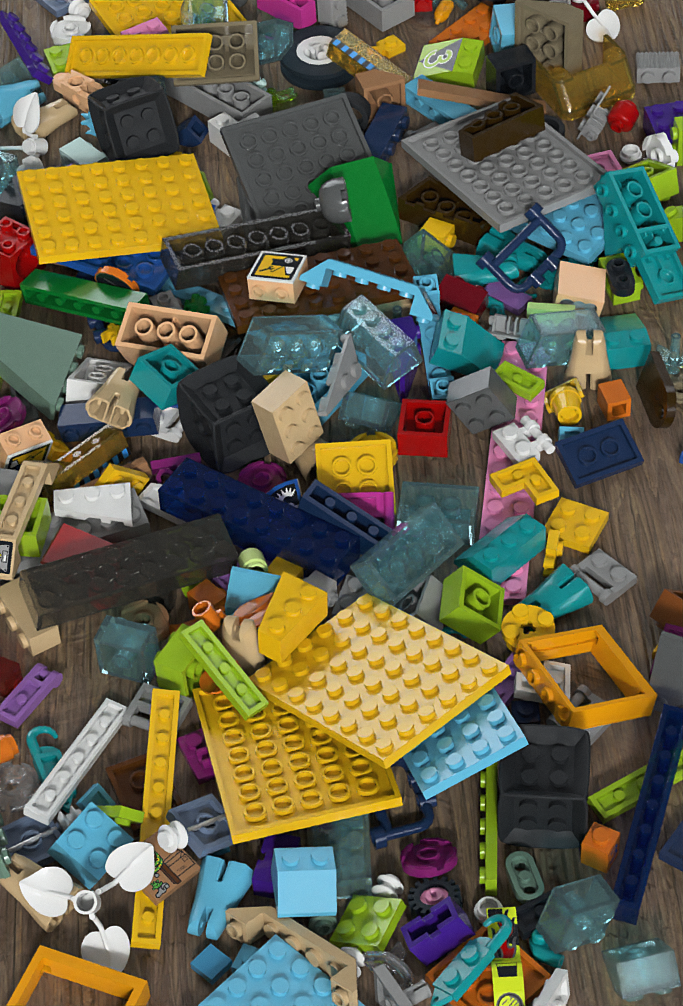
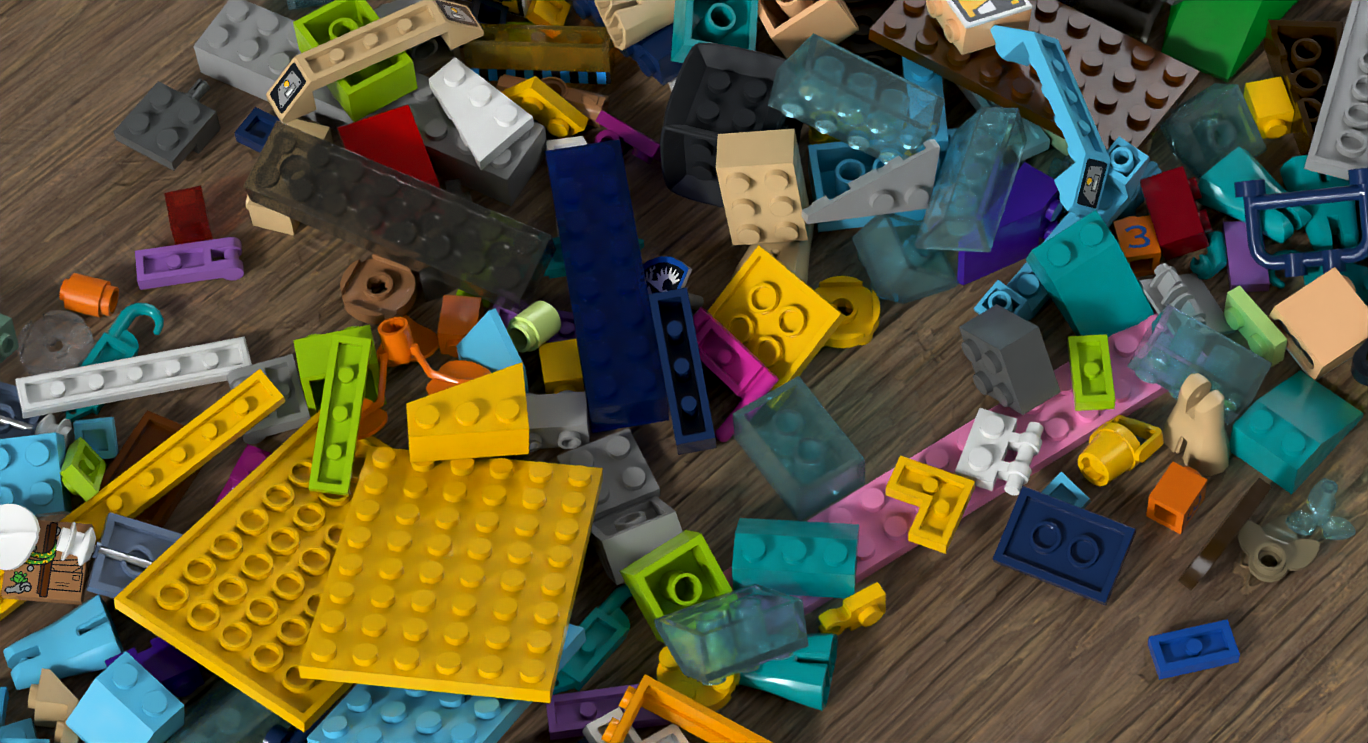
camera: 50 degrees right, 10 degrees up
(126, 649) = (313, 293): clear light blue brick -> none
(243, 643) = (400, 389): tan piece -> none
(262, 475) = (696, 237): magenta tile -> none
(407, 554) = (679, 465): clear light blue brick -> none
(424, 428) = (919, 334): red brick -> none
(529, 591) = (734, 633): none -> clear light blue slope
(577, 524) = (932, 604): yellow plate -> none
(608, 573) = (887, 694): light grey plate -> none

